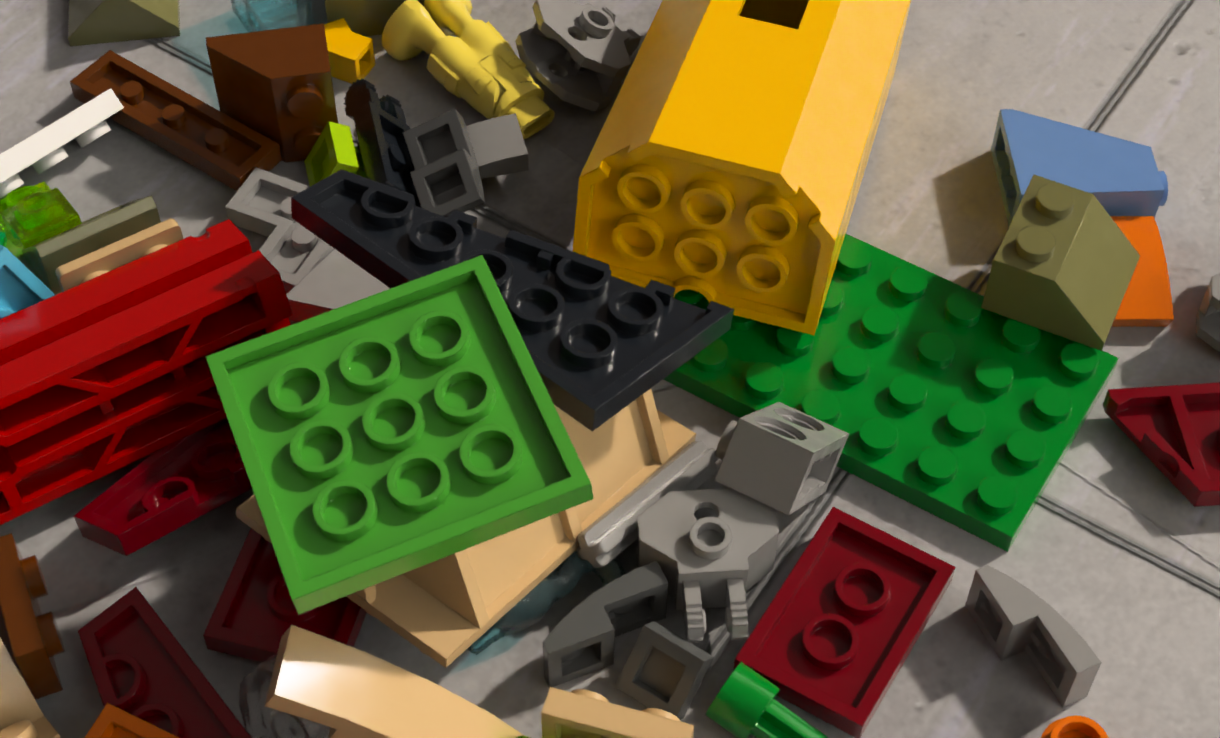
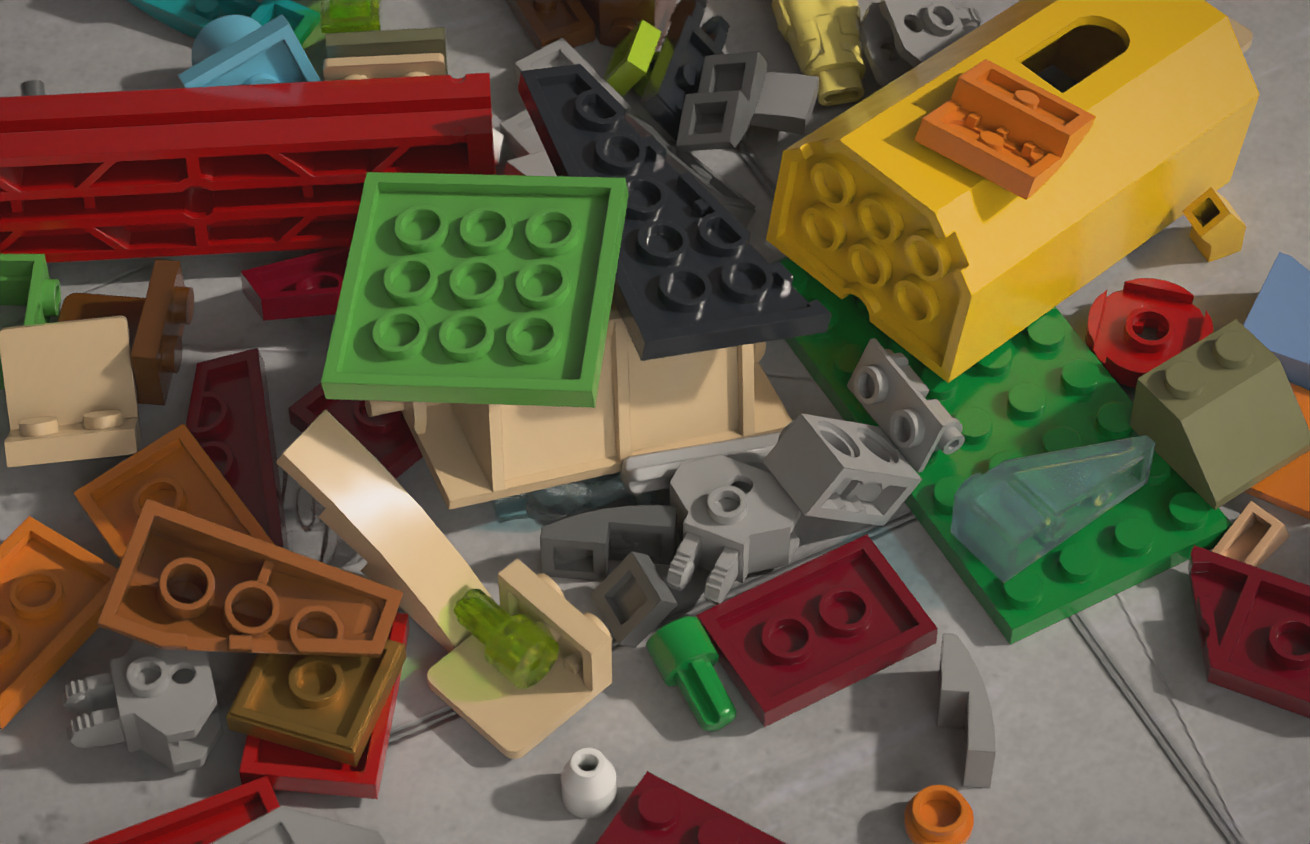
camera: 30 degrees right, 0 degrees up
(785, 76) = (1005, 129): none -> orange slope
(791, 374) = (898, 405): none -> light grey hinge
(921, 111) = (1215, 226): none -> yellow piece
(944, 250) = (1142, 304): none -> red plate
(968, 410) = (1044, 499): none -> clear light blue slope
(1138, 360) = (1252, 536): none -> light nougat piece

